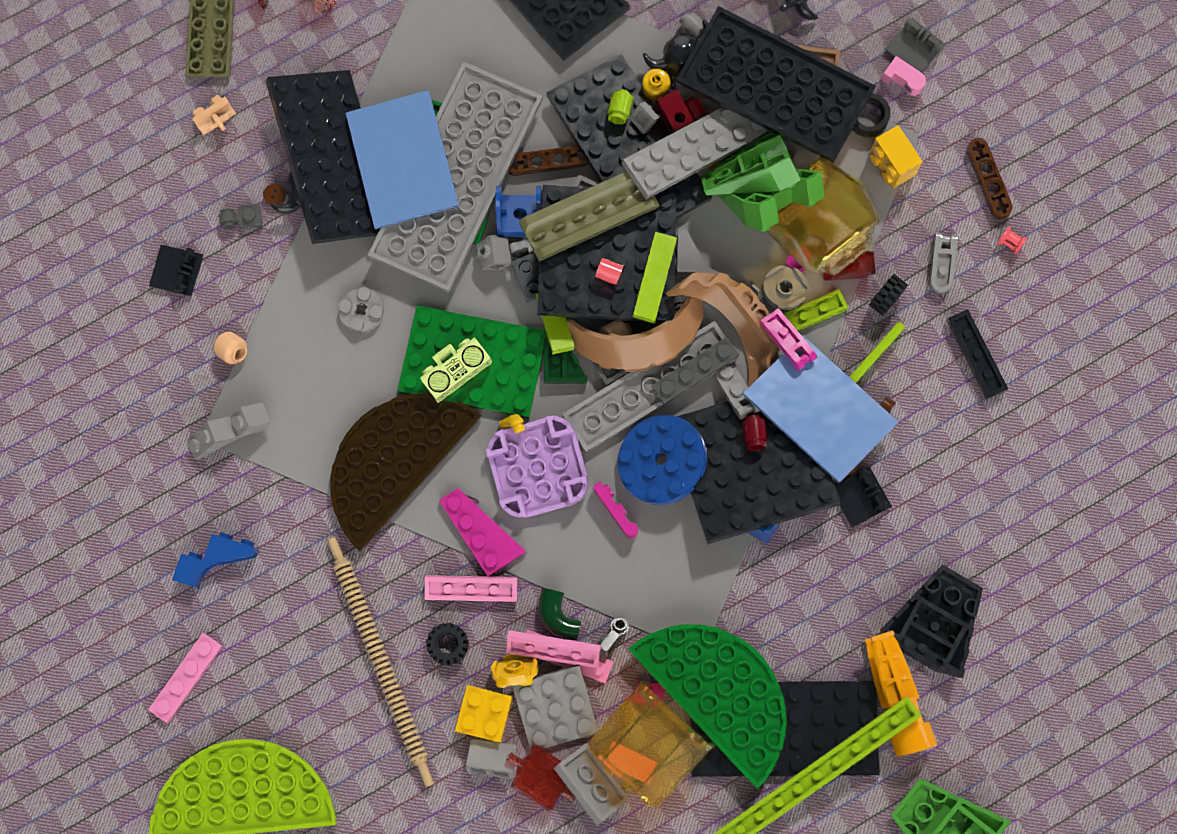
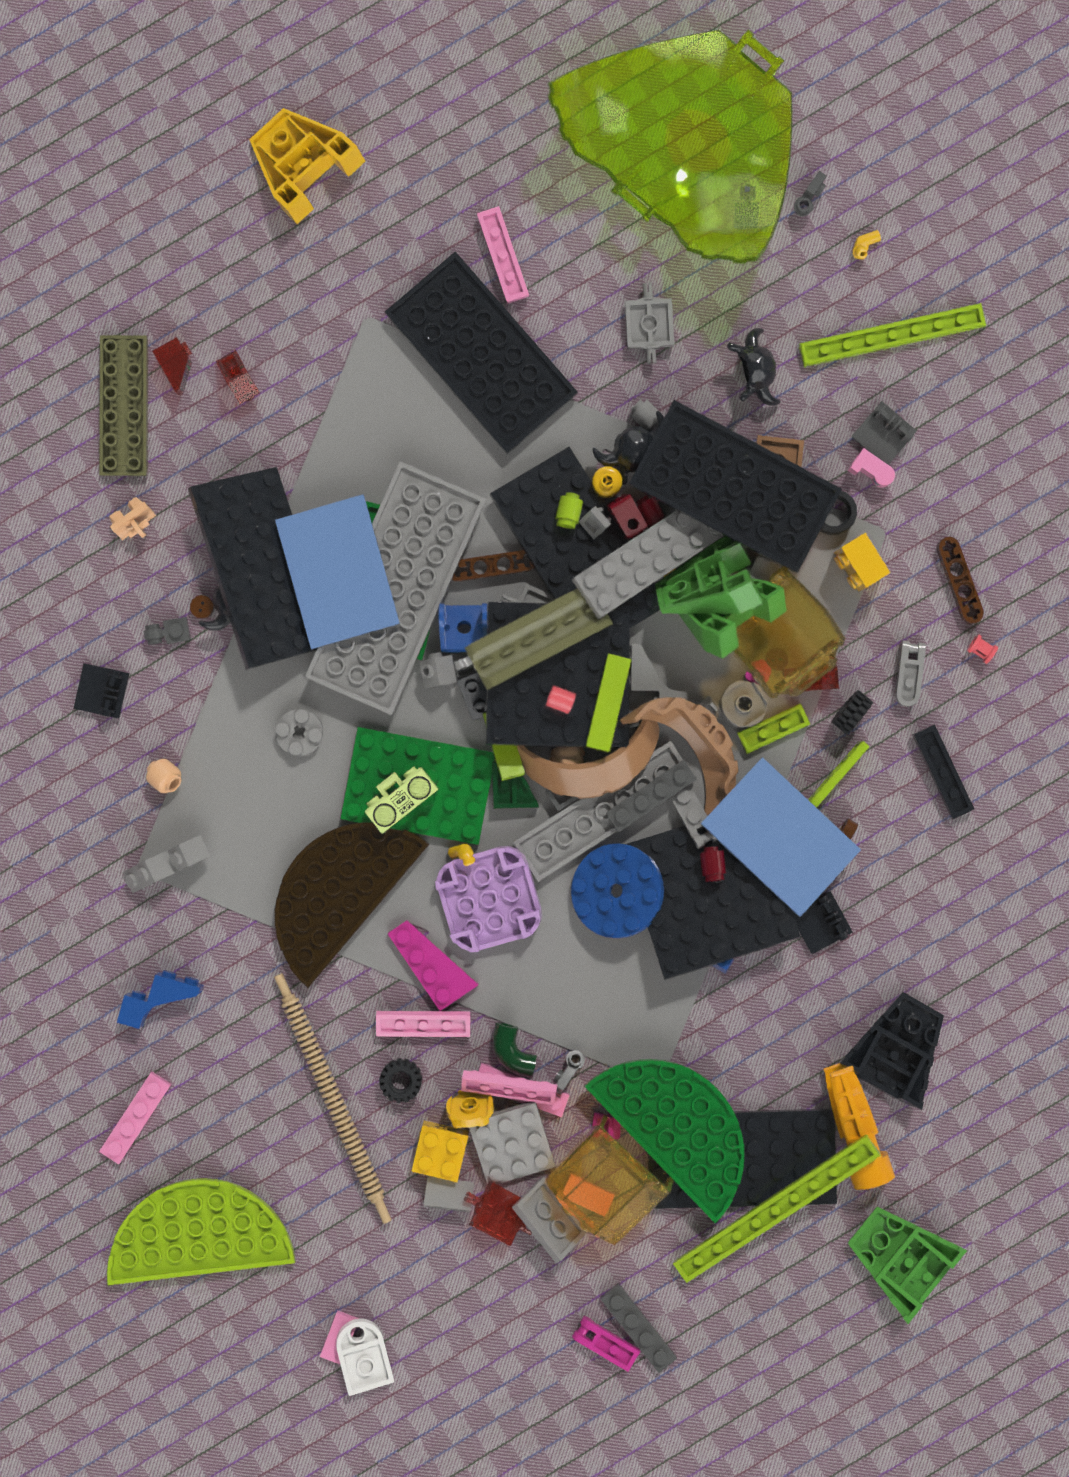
camera: 10 degrees left, 10 degrees up
(617, 511) = (571, 942): dark pink plate -> none
(788, 339) = (747, 764): plate -> none

